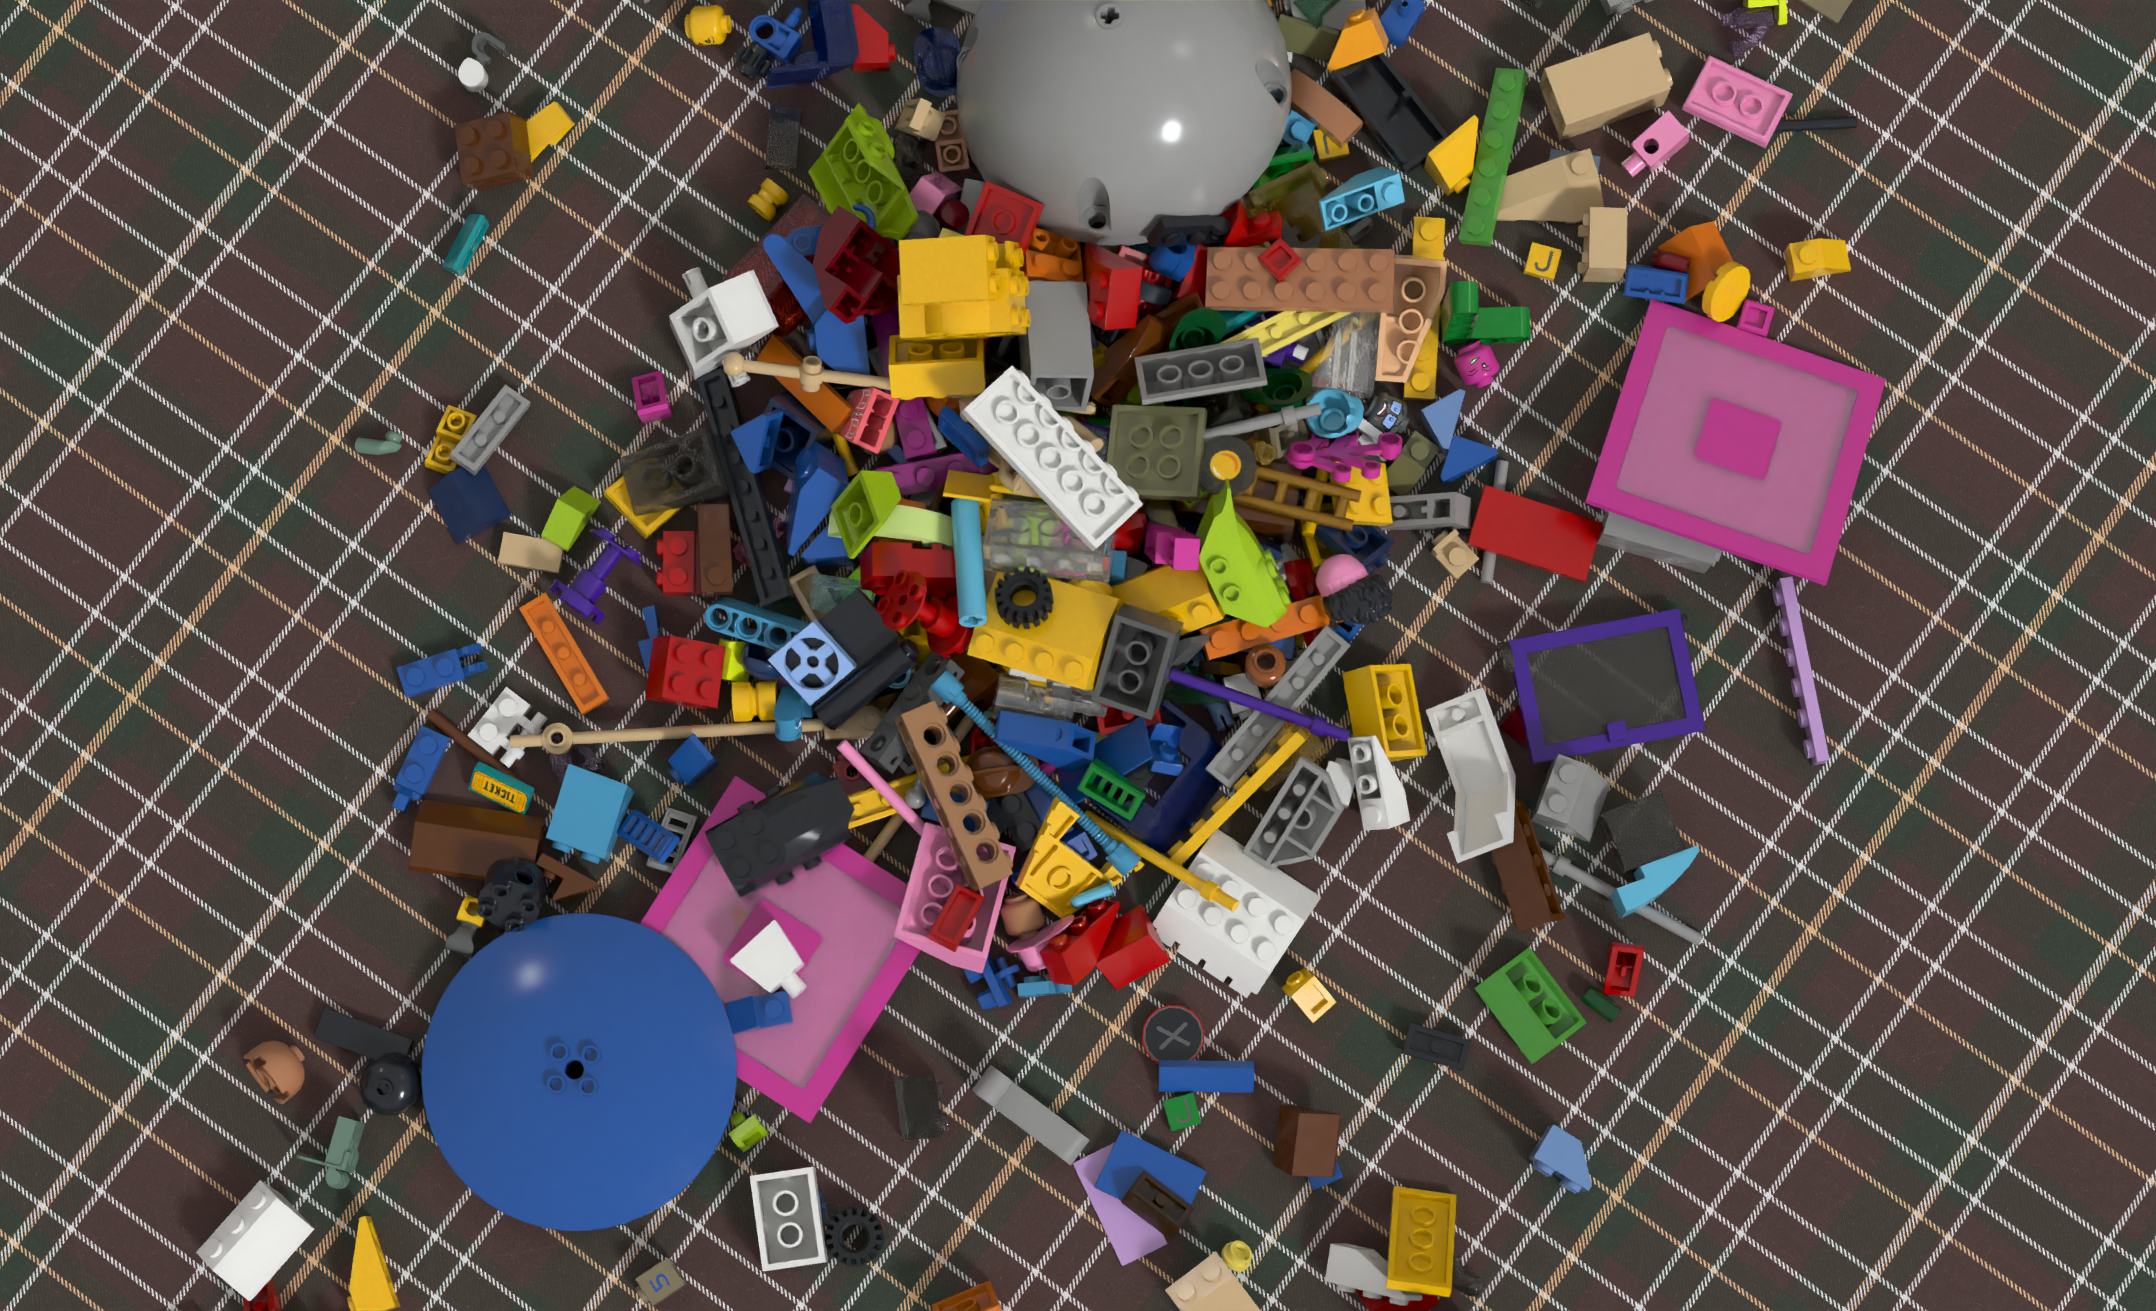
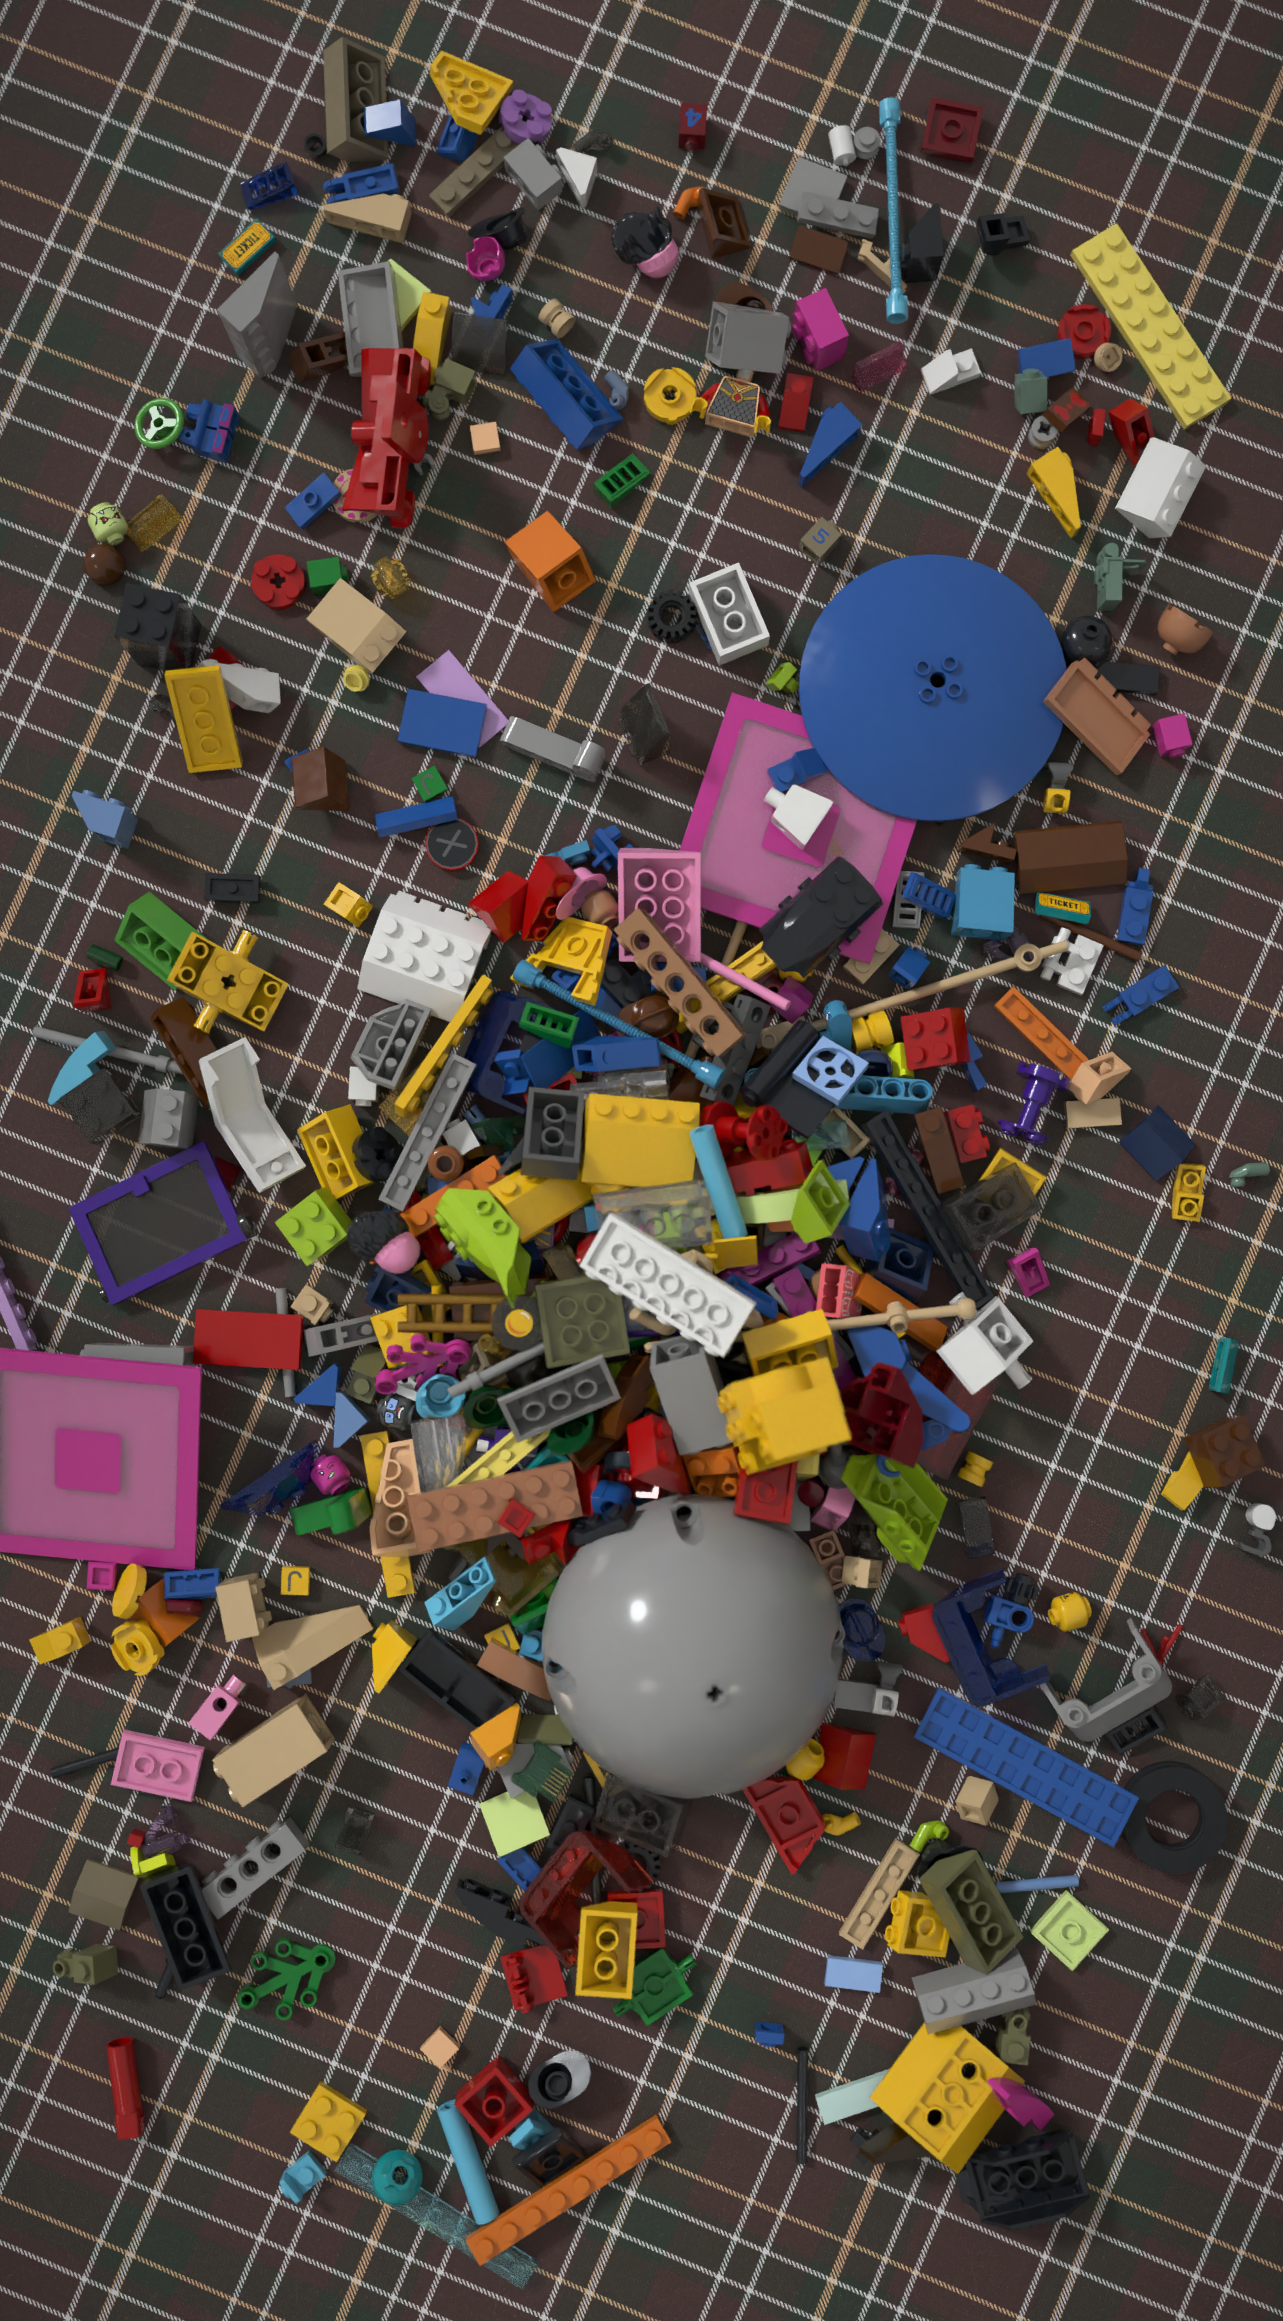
camera: 165 degrees right, 5 degrees up
(322, 952) = (1172, 736): none -> dark pink brick
(401, 993) = (1097, 717): none -> nougat hinge
(490, 430) = (1158, 1207): light grey plate -> none
(512, 894) = (1029, 817): black brick -> none
(515, 588) = (1098, 1077): none -> light nougat slope
(569, 517) = (1069, 1150): lime slope -> none
(714, 791) = (884, 948): none -> tan plate
(758, 440) = (927, 1251): blue slope -> none
(827, 758) = (799, 998): none -> magenta panel
(916, 795) = (714, 981): light grey piece -> none
(955, 917) = (652, 881): red tile -> none
(1019, 582) = (666, 1176): black tyre -> none
(1092, 895) = (546, 940): medium azure piece -> none
(1157, 1205) = (430, 701): dark brown slope -> none
(1172, 546) = (546, 1237): dark pink slope -> none
(1208, 889) = (448, 960): yellow bar -> none
(1316, 725) = (390, 1123): dark purple bar -> none
(1326, 696) = (366, 1162): none -> black plate
(1377, 785) = (328, 1086): white slope -> none
(1428, 637) = (315, 1226): none -> lime brick
(1446, 915) = (251, 991): none -> yellow slope
(1493, 156) = (358, 1663): bright green plate -> none
(1539, 367) = (276, 1485): none -> clear blue wedge
(1720, 237) = (140, 1635): none -> yellow plate
(1777, 31) = (136, 1838): none -> red piece

